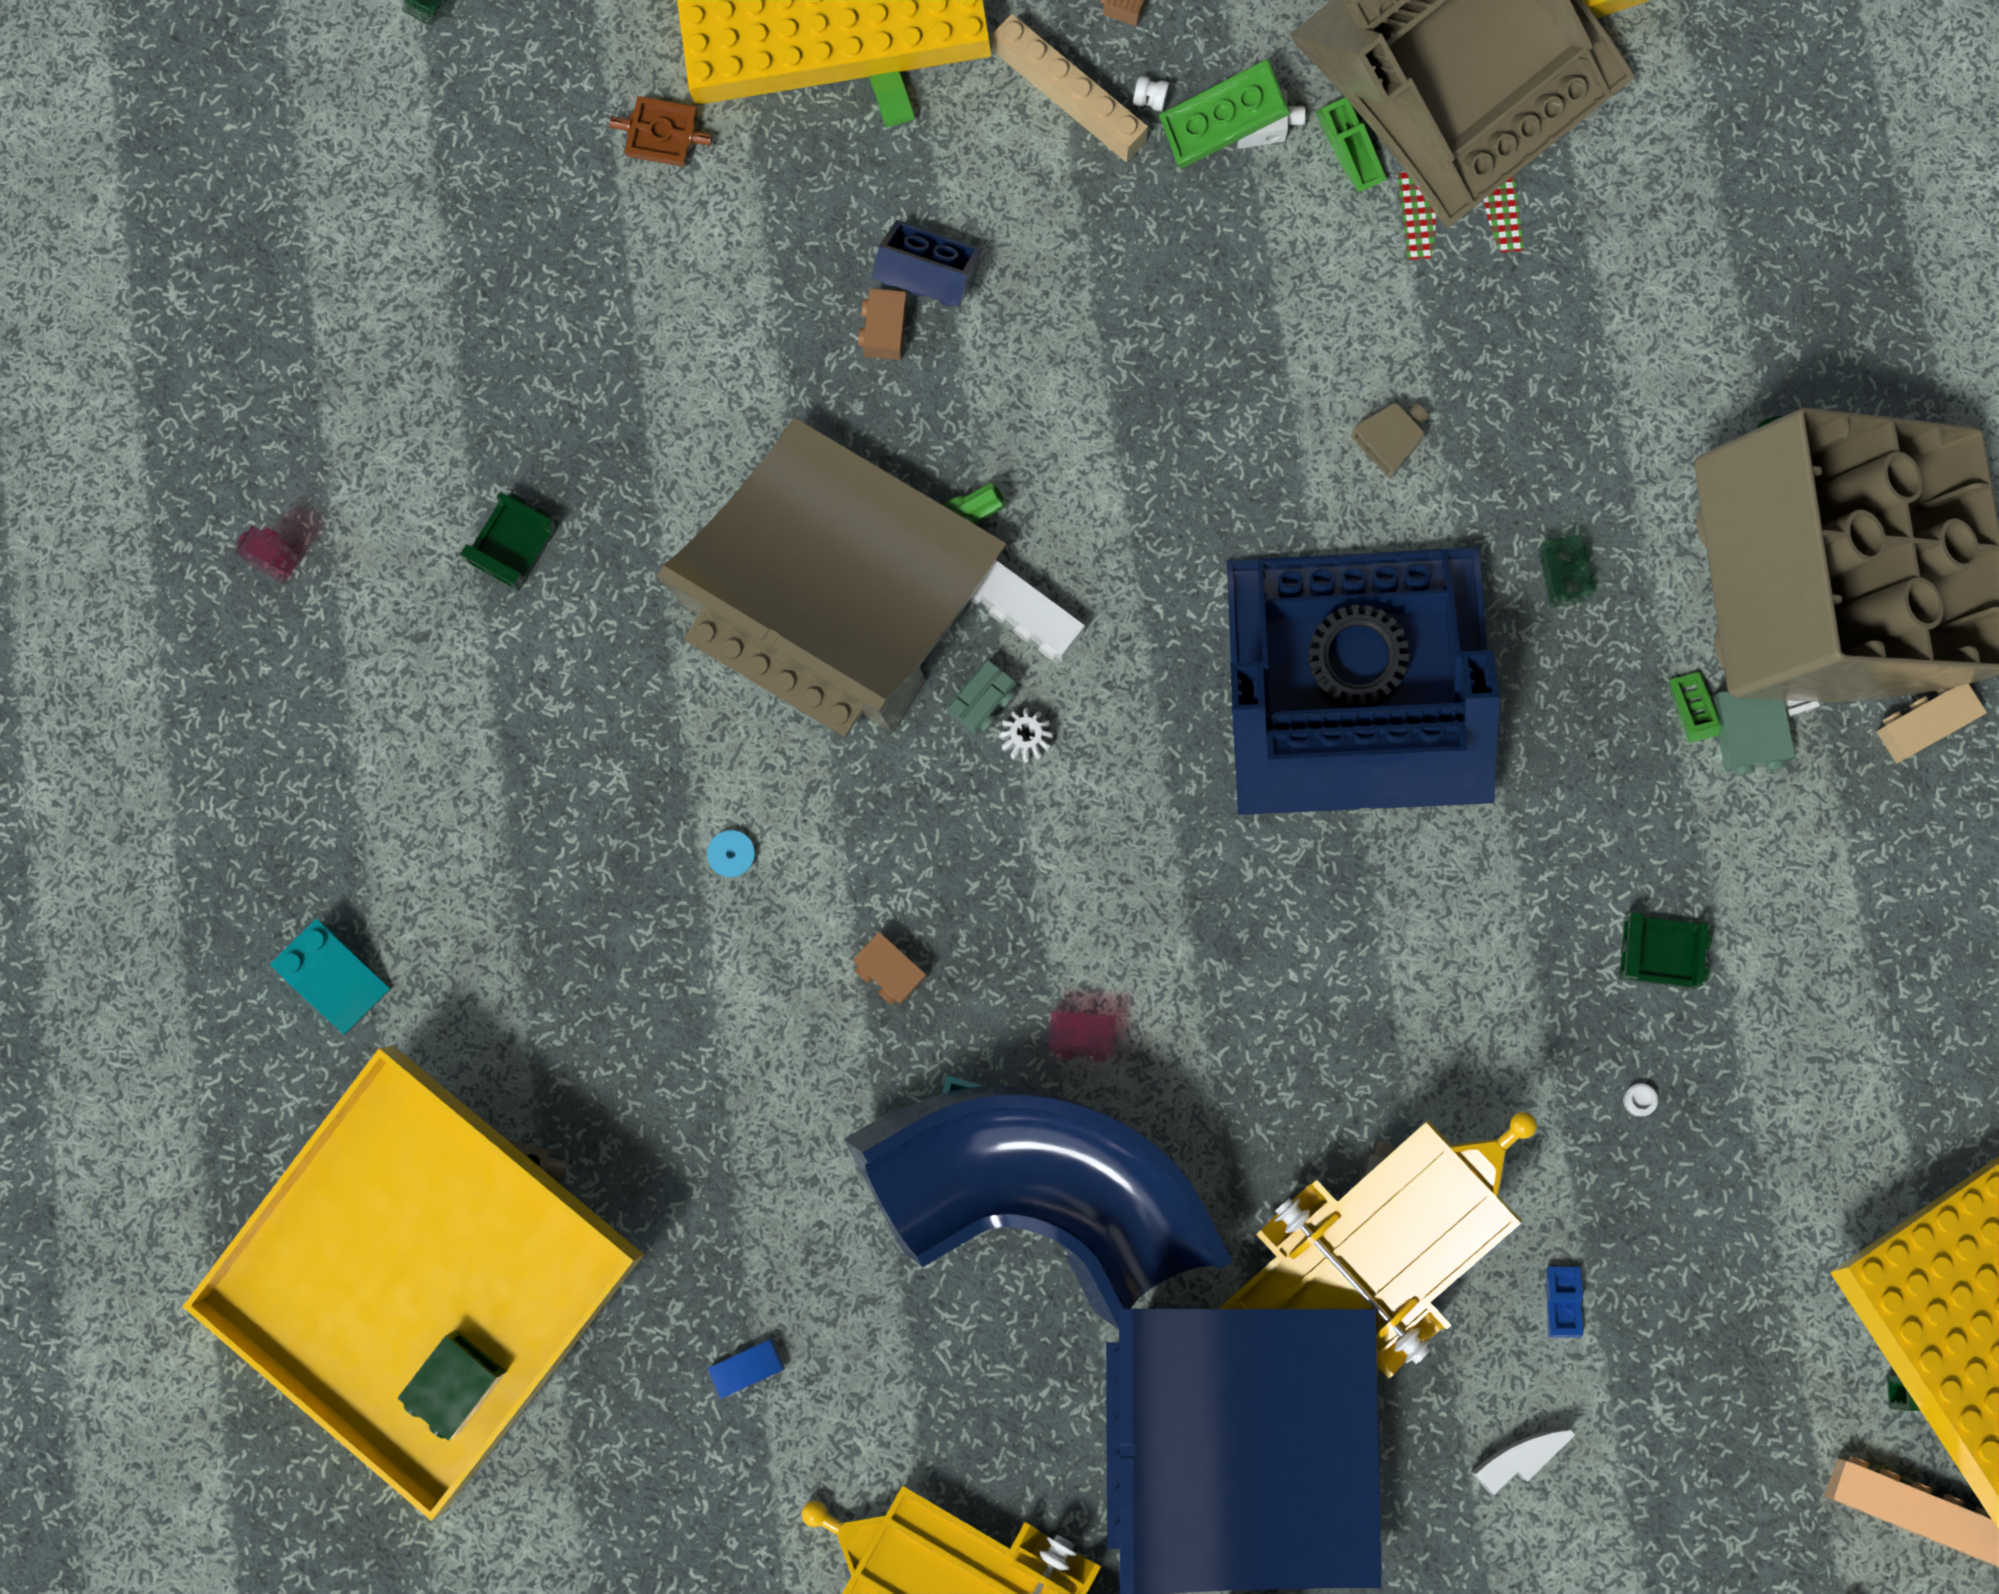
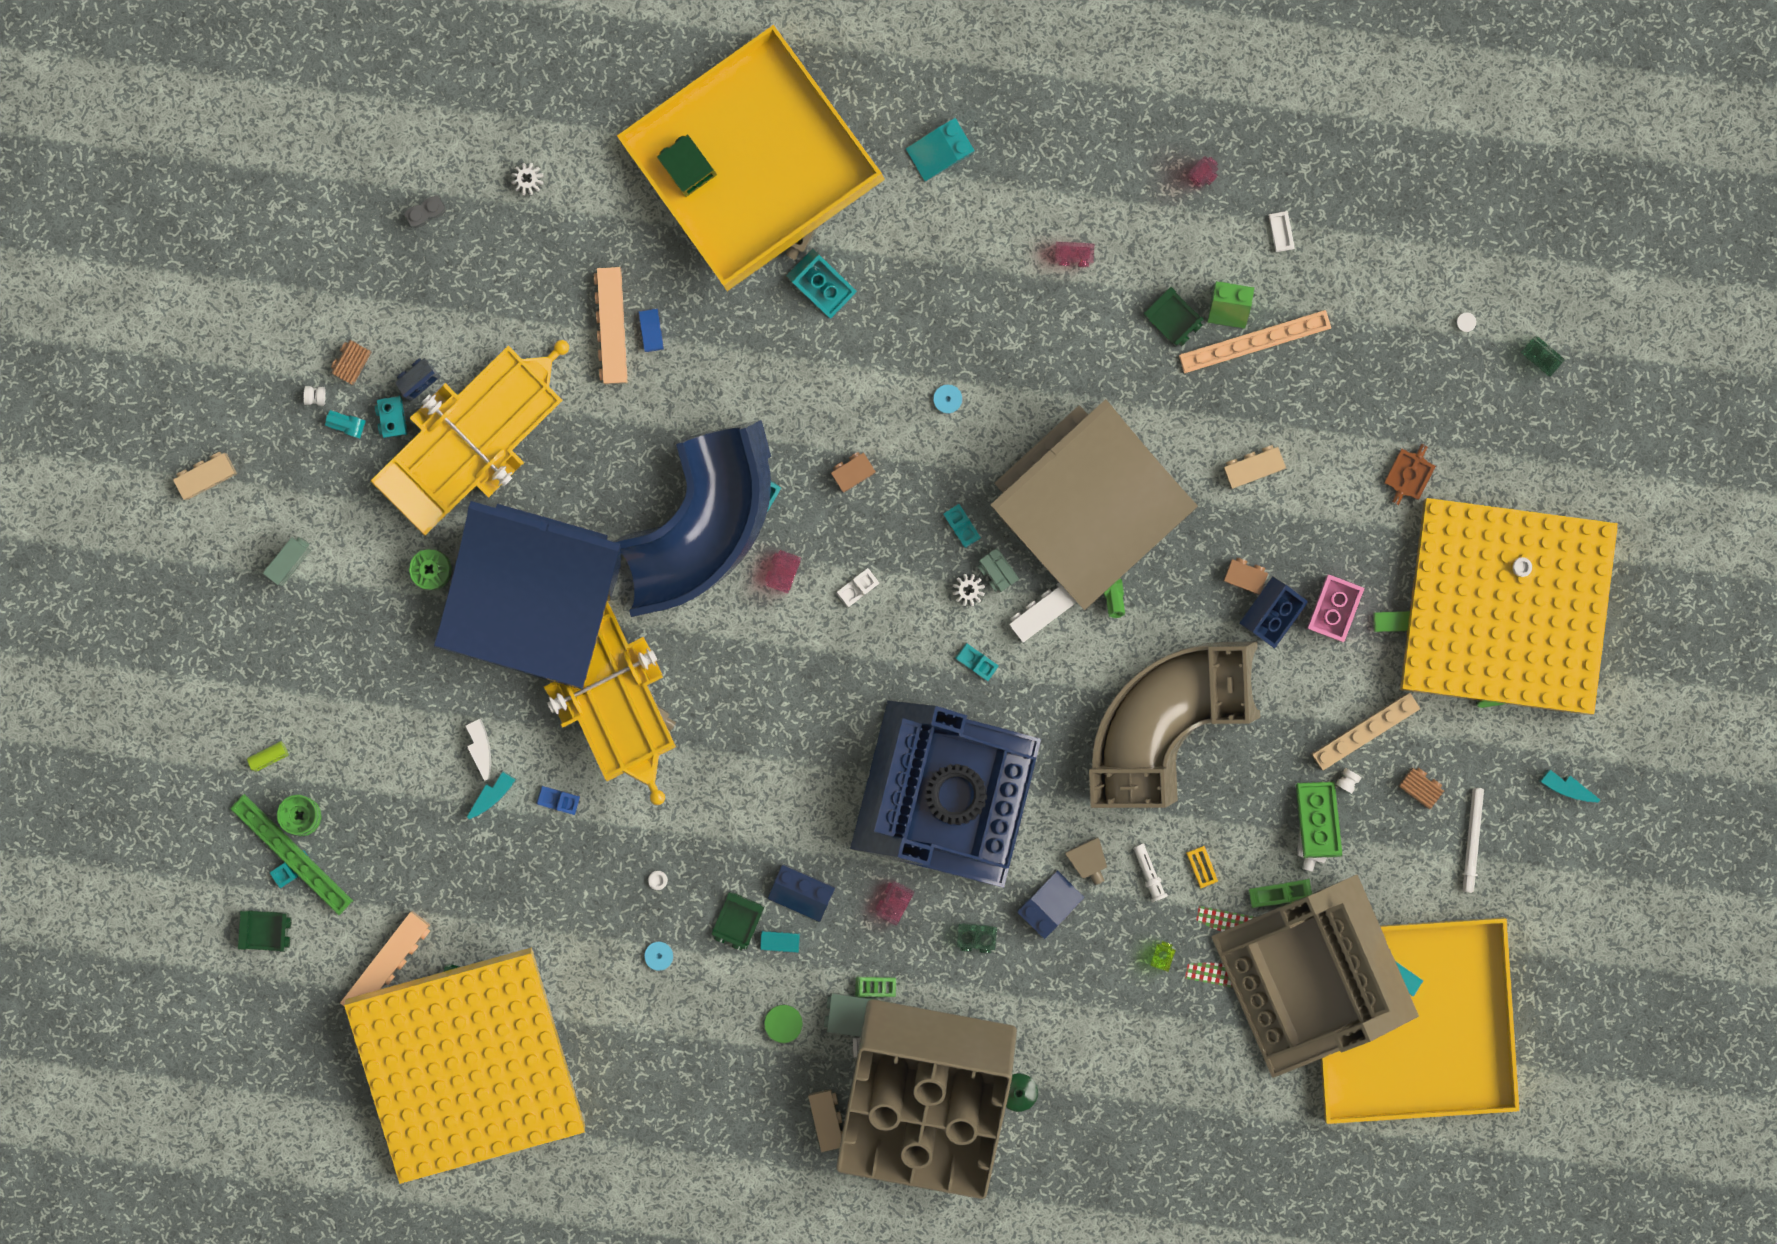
camera: 100 degrees right, 10 degrees up
(336, 419) = (1281, 231): none -> white tile
(408, 115) = (1466, 322): none -> white tile
(445, 718) = (1074, 253): none -> clear pink brick
(464, 456) = (1230, 304): none -> bright green slope
(518, 412) = (1255, 341): none -> light nougat tile
(595, 1108) = (821, 283): none -> teal slope
(711, 357) = (1254, 466): none -> tan brick
(755, 1437) = (611, 325): none -> light nougat brick
(895, 179) = (1335, 608): none -> bright pink brick
(927, 775) = (962, 525): none -> teal slope
(1073, 911) = (857, 588): none -> white slope
(1131, 386) = (1158, 711): none -> dark tan piece
(1135, 692) = (976, 661): none -> teal slope
(1328, 285) = (1196, 852): none -> yellow tile
(1394, 334) = (1153, 882): none -> white pin
(1480, 475) = (1050, 904): none -> slope
(1510, 279) = (1163, 964): none -> clear neon green brick
(1554, 711) = (895, 902): none -> clear pink brick
(1585, 862) = (801, 892): none -> dark blue slope
(1592, 1415) = (492, 795): none -> teal slope
(1672, 875) = (780, 941): none -> teal slope
(1762, 1062) = (658, 956): none -> medium azure piece
(1801, 833) = (783, 1023): none -> bright green tile

